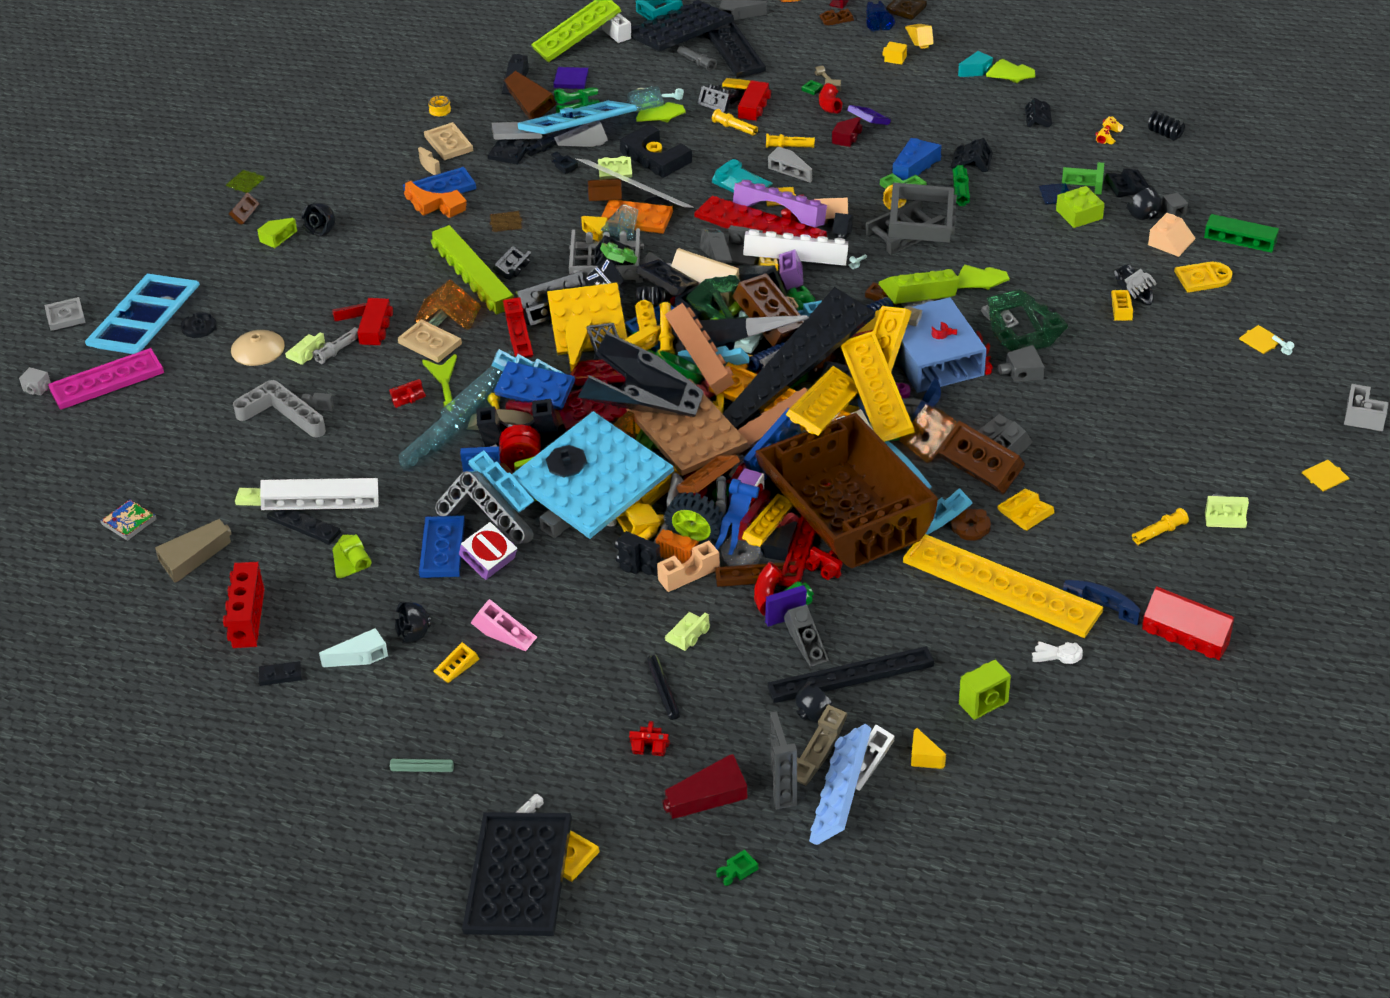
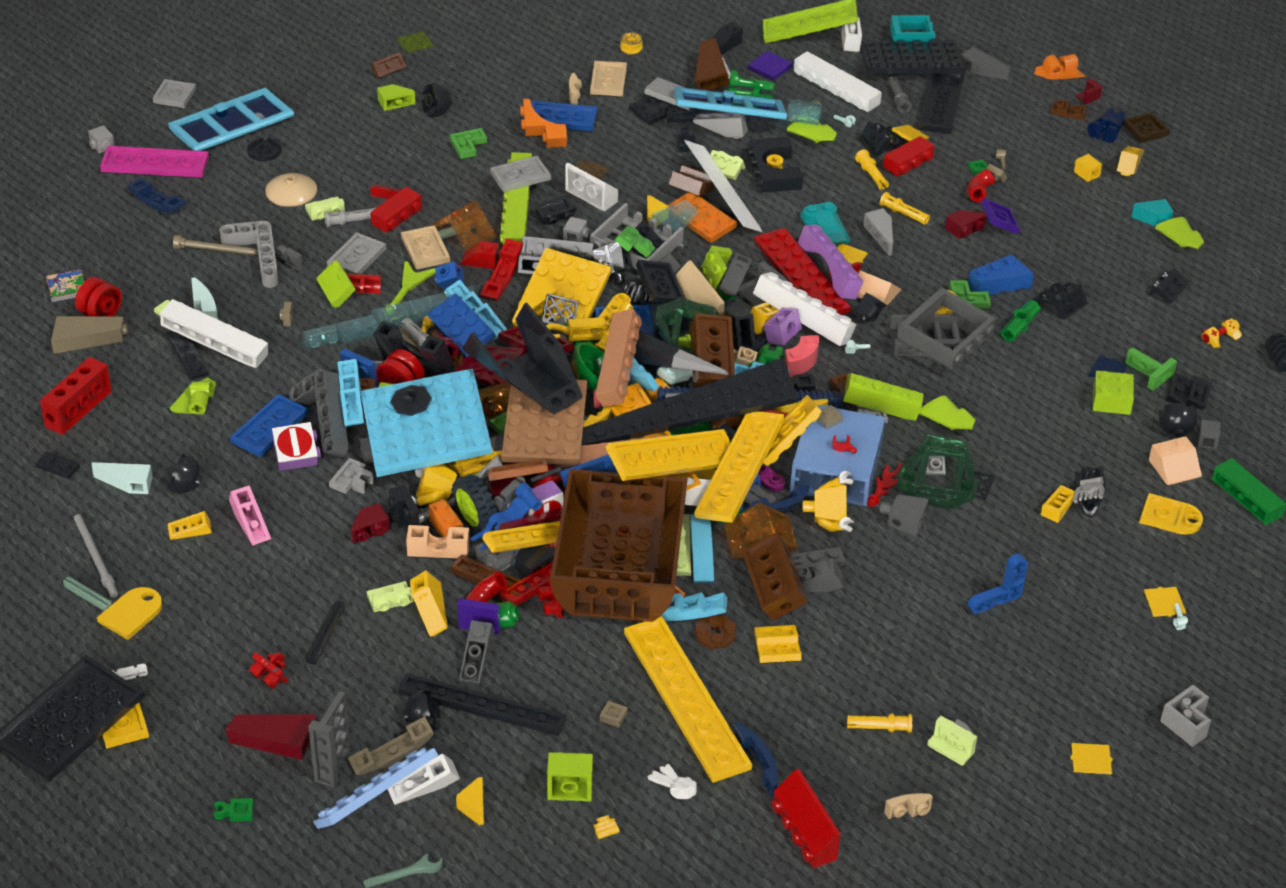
camera: 30 degrees right, 0 degrees up
(146, 410) = (144, 191): none -> dark blue slope
(180, 514) = (98, 298): none -> red wheel
(203, 434) = (180, 242): none -> dark tan piece
(273, 470) = (203, 299): none -> light aqua slope
(364, 448) = (286, 314): none -> dark tan plate
(375, 374) = (358, 253): none -> light grey plate
(378, 242) = (465, 141): none -> bright green plate
(384, 404) = (335, 284): none -> lime piece
(427, 744) = (106, 579): none -> light grey bar
(458, 244) = (520, 173): none -> light grey tile
(477, 761) = (131, 612): none -> yellow tile
(478, 353) = (448, 274): none -> blue brick
(486, 325) = (482, 255): none -> red slope
(511, 412) = (414, 331): none -> light grey pin
(525, 231) = (590, 188): none -> white slope
(545, 270) = (575, 229): none -> light grey brick
(557, 553) = (351, 475): none -> light grey plate
(613, 580) = (369, 523): none -> dark red slope
(640, 67) = (837, 81): none -> white brick
(698, 243) = (715, 264): none -> lime bracket
(731, 618) = (430, 602): none -> yellow slope
(825, 281) = (803, 356): none -> coral brick
(931, 826) = (420, 866): none -> sand green piece
(960, 626) = (613, 714): none -> dark tan plate
(966, 385) = (831, 504): none -> yellow torso
(1041, 714) = (605, 827): none -> yellow plate
(1154, 381) = (1010, 590): none -> blue beam
(1242, 575) = (913, 803): none -> tan slope

